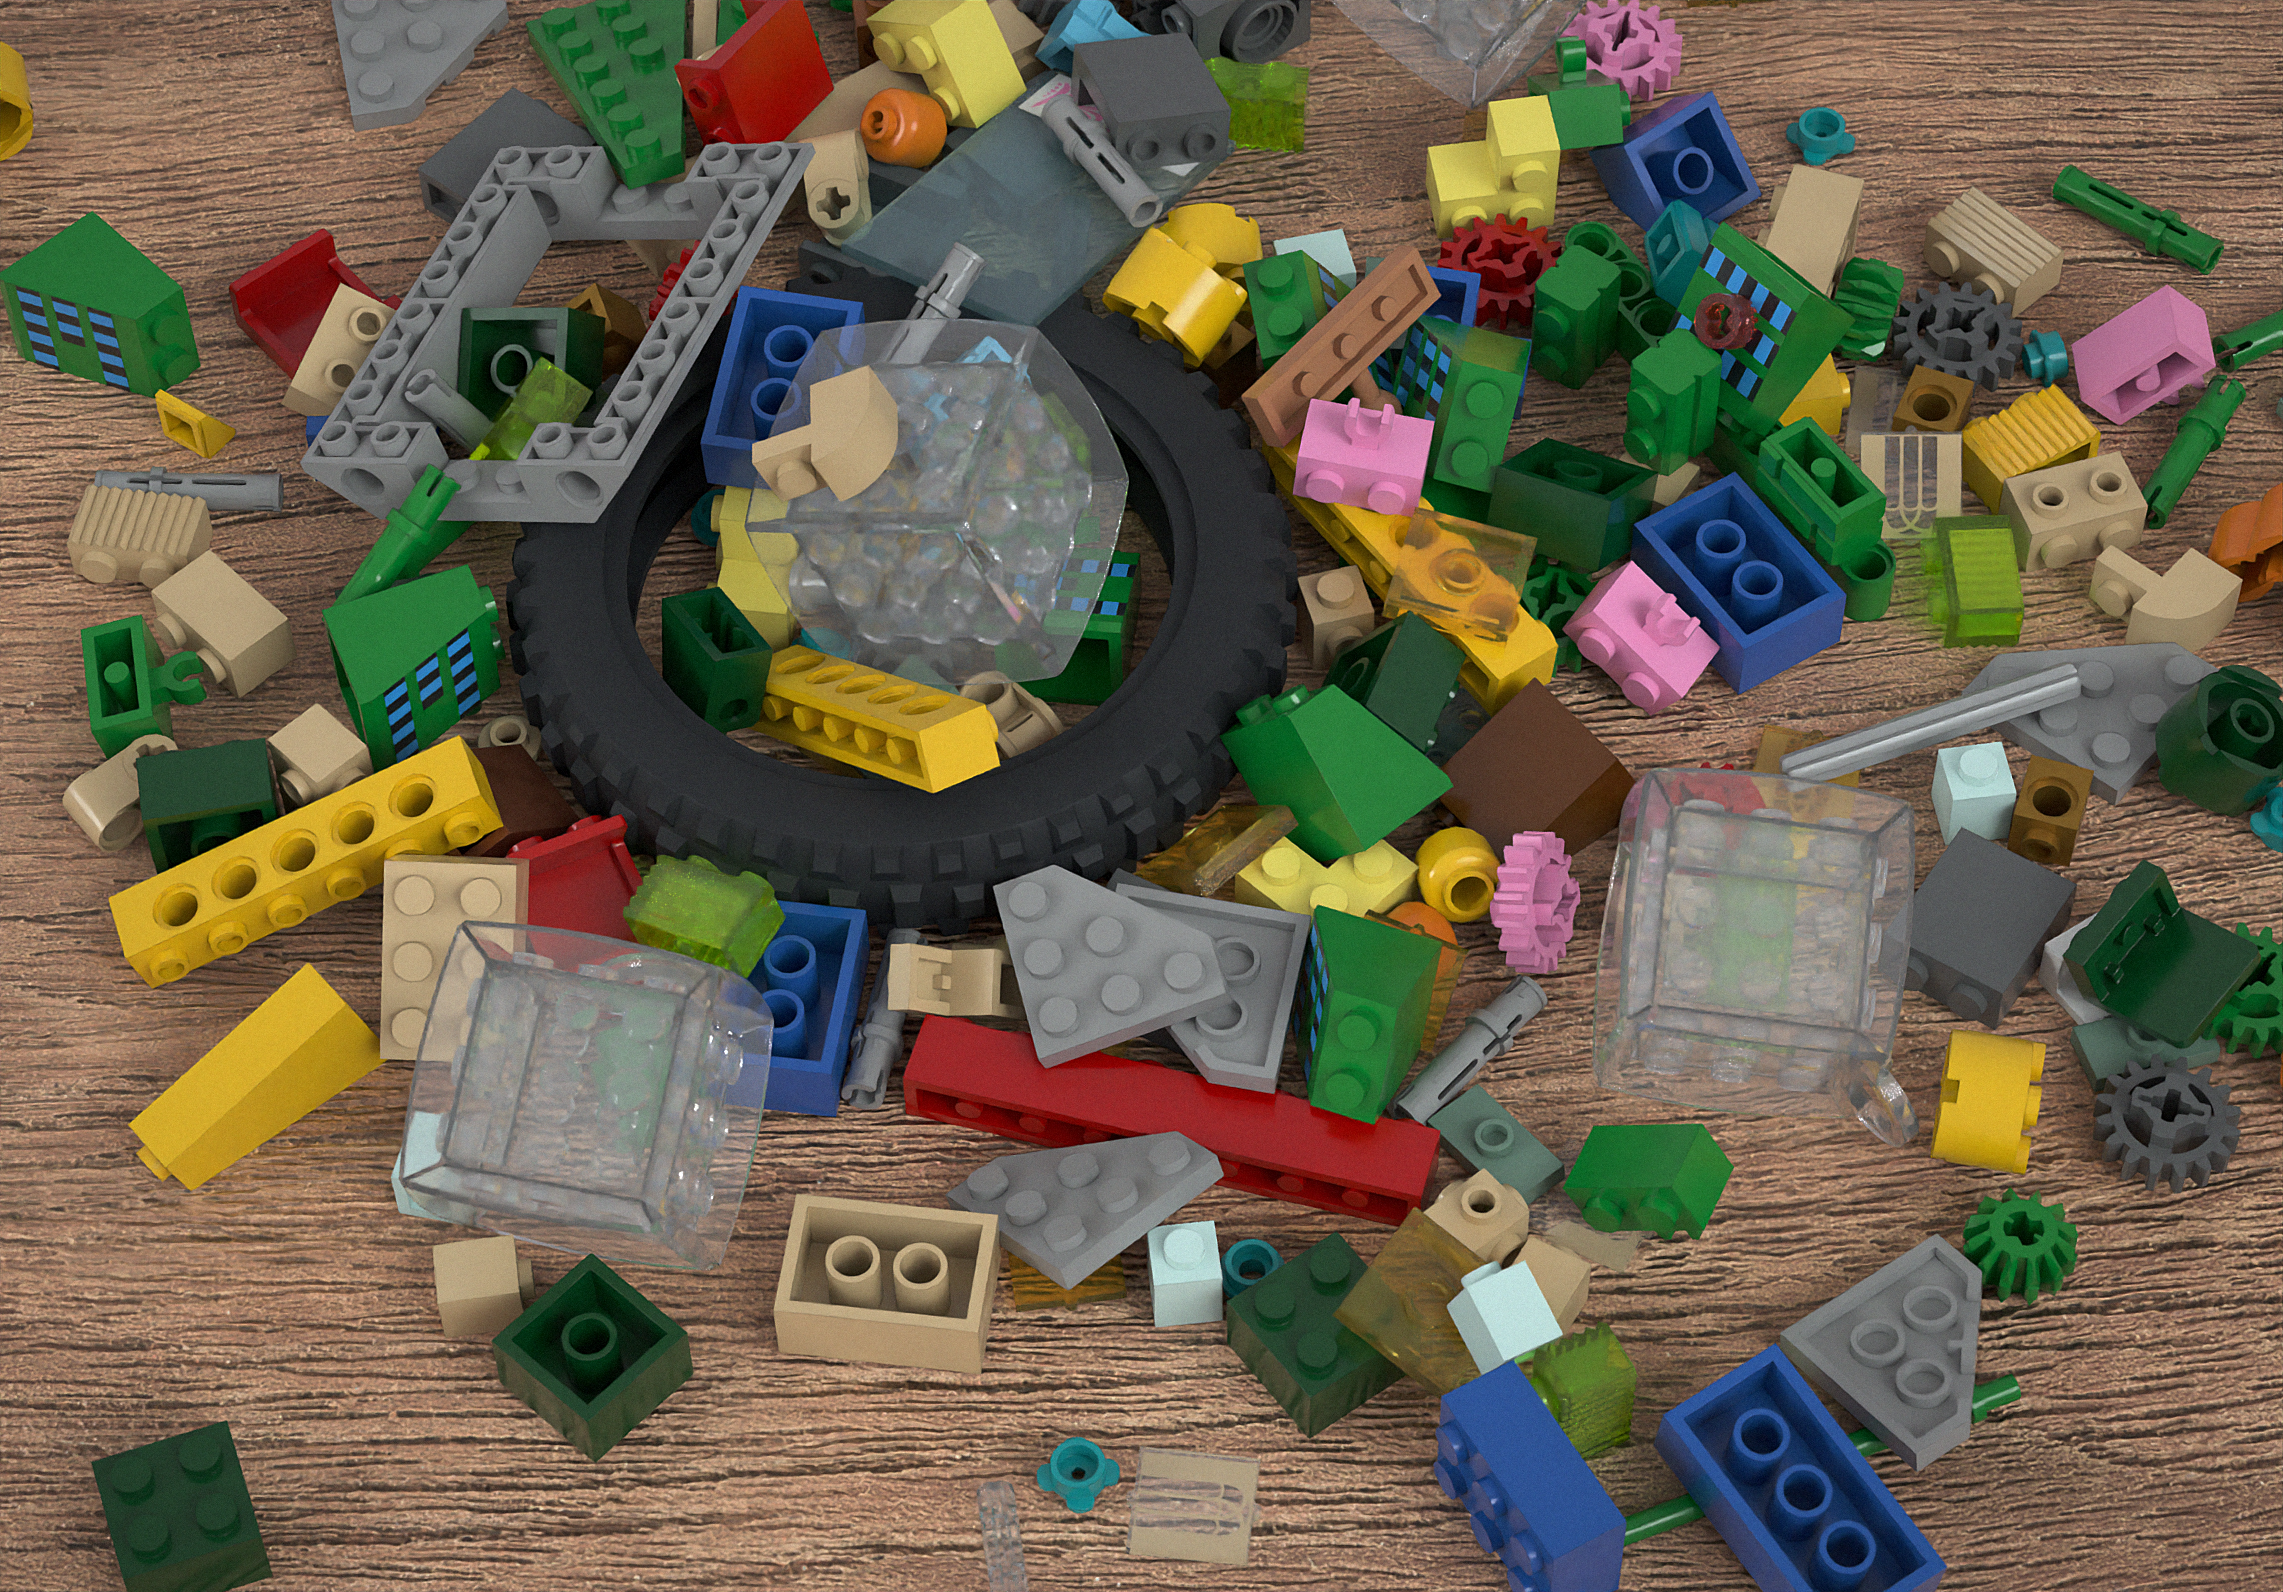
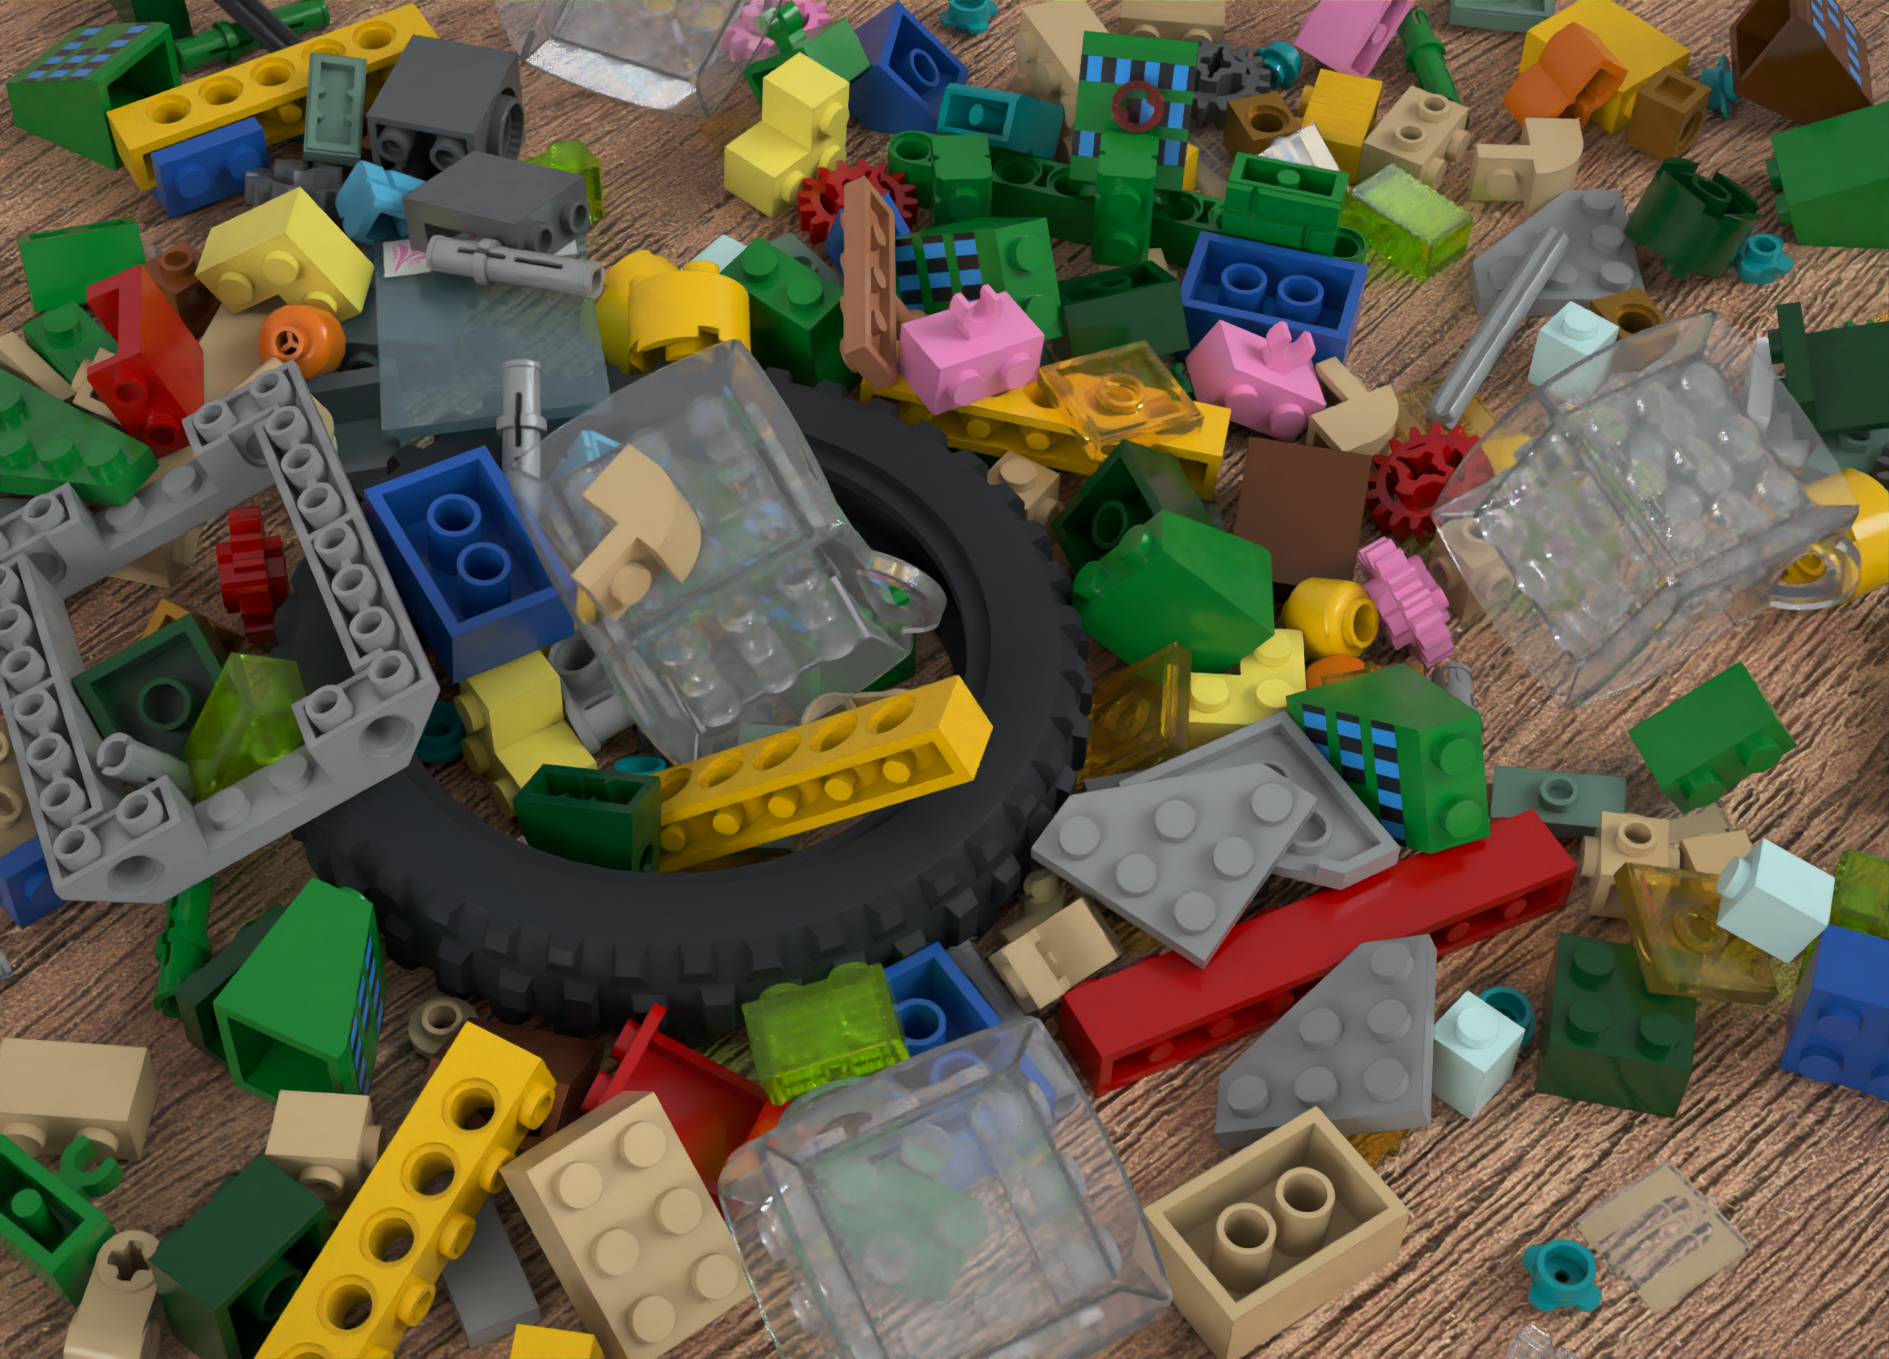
camera: 45 degrees left, 5 degrees down
(356, 941) = (489, 1283): none -> light grey tile
(402, 536) = (221, 905): green pin -> none
(1692, 733) = (1352, 416): none -> tan brick

